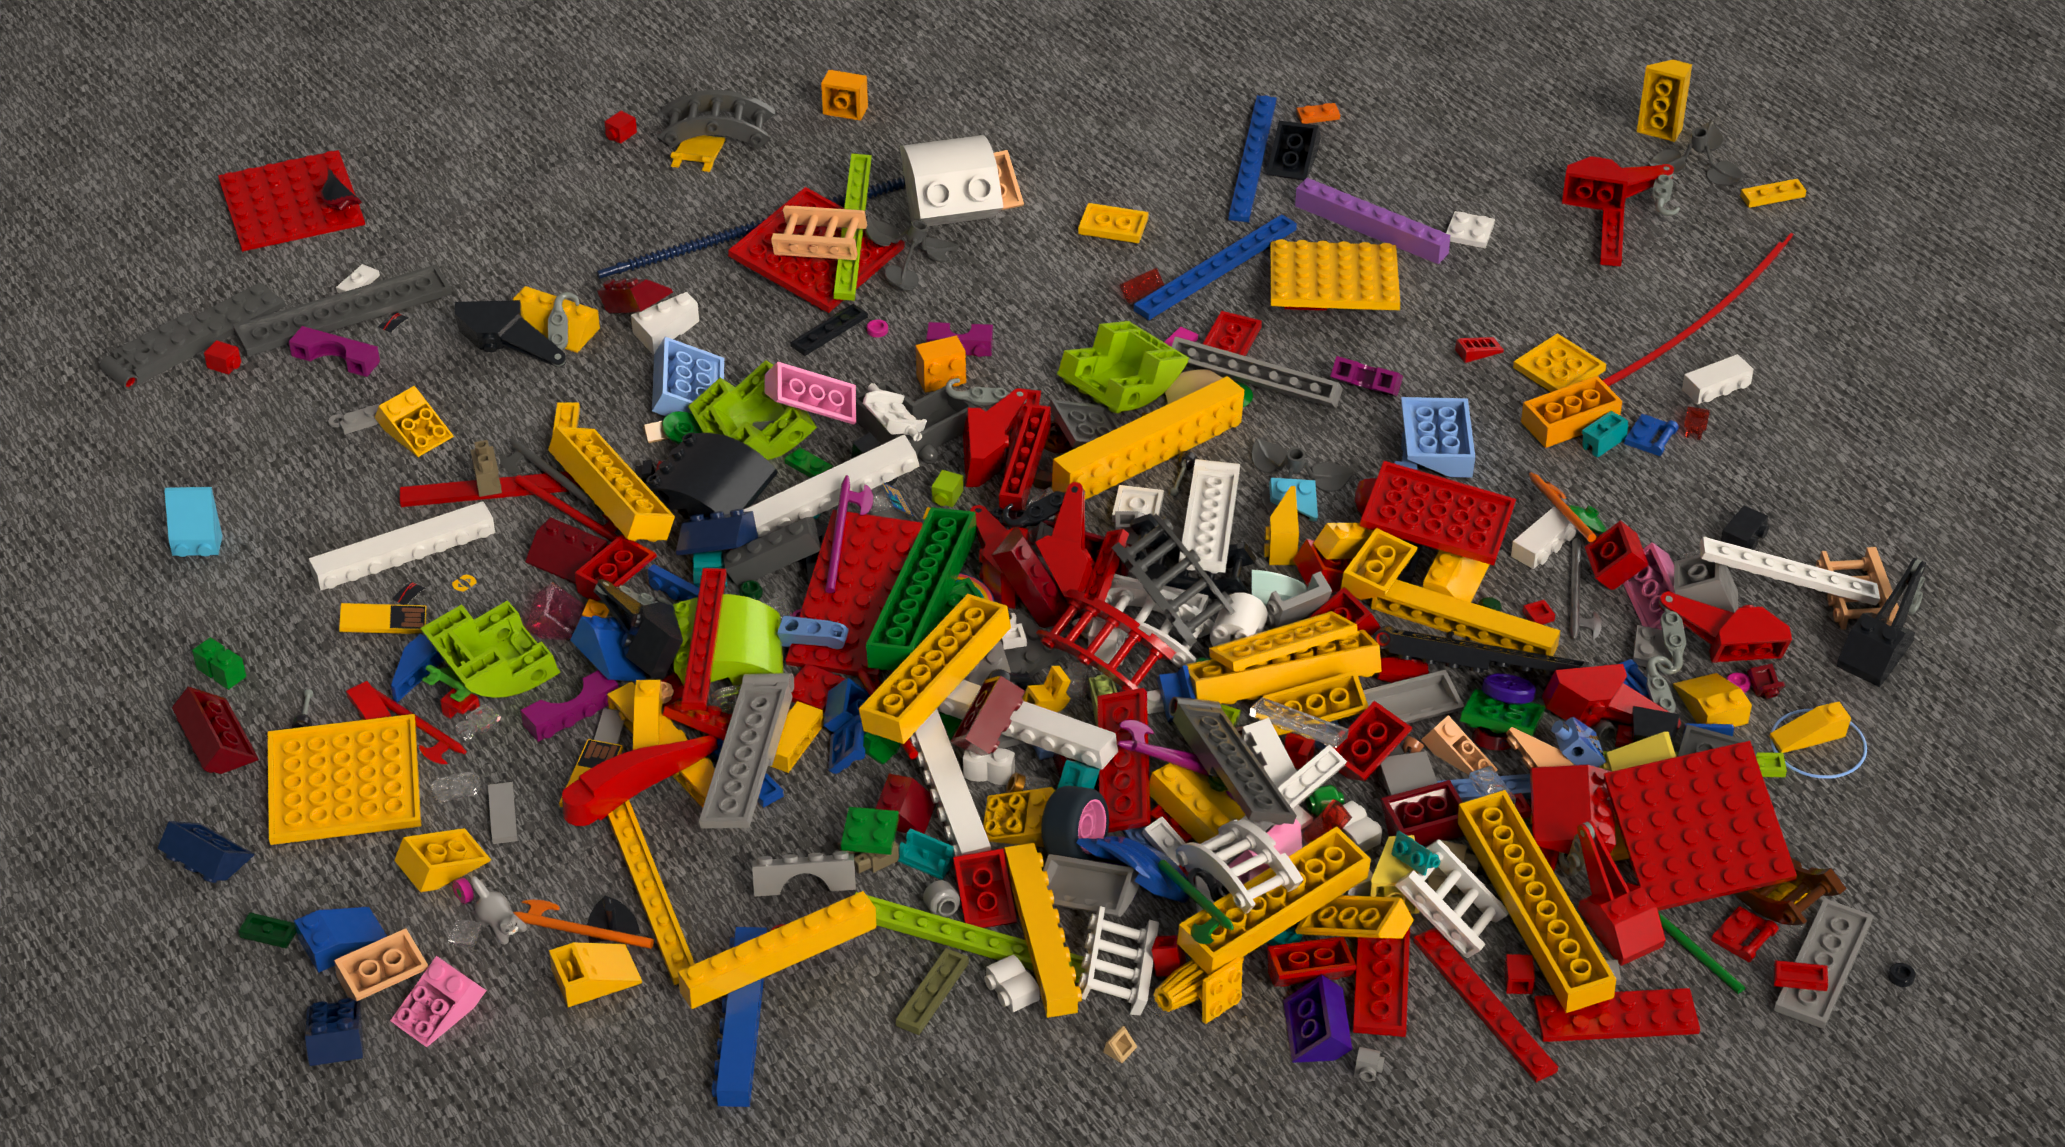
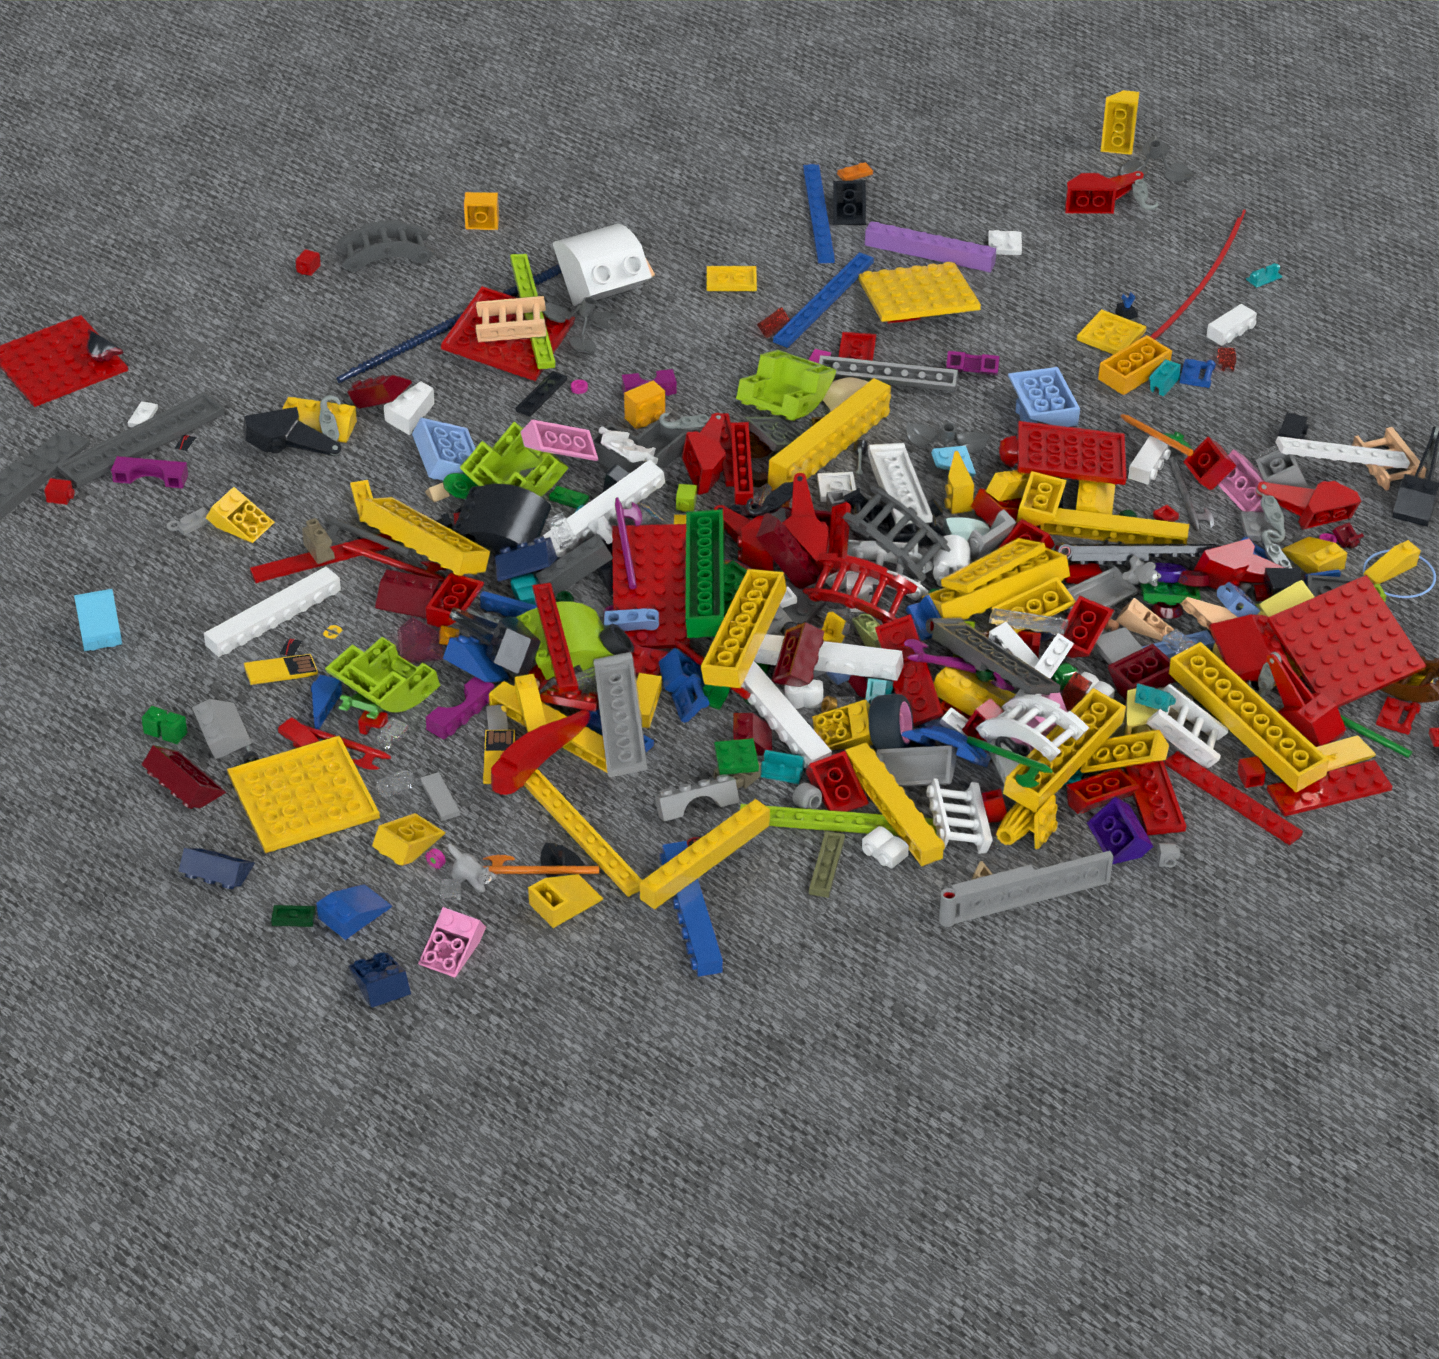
camera: 15 degrees left, 0 degrees up
(281, 678) = (221, 727): none -> light grey slope
(379, 965) = (397, 924): light nougat slope -> none
(698, 149) = (378, 271): yellow flag -> none
(771, 505) = (561, 531): none -> clear plate
(784, 655) = (616, 640): none -> black tyre
(820, 511) = (602, 528): none -> white bracket
(1159, 1072) = (1021, 887): none -> light grey hinge
(1193, 831) = (985, 711): none -> red brick
(1470, 684) = (1141, 572): none -> light grey animal
(1472, 348) = (1041, 330): red slope -> none
(1537, 703) = (1194, 578): none -> dark red hat
(1588, 338) = (1125, 308): none -> black piece
(1612, 236) = (1113, 232): red plate -> none
(1650, 971) = (1346, 752): none -> yellow piece
(1773, 193) = (1219, 181): yellow plate -> none
(1780, 323) = (1264, 276): none -> teal hinge

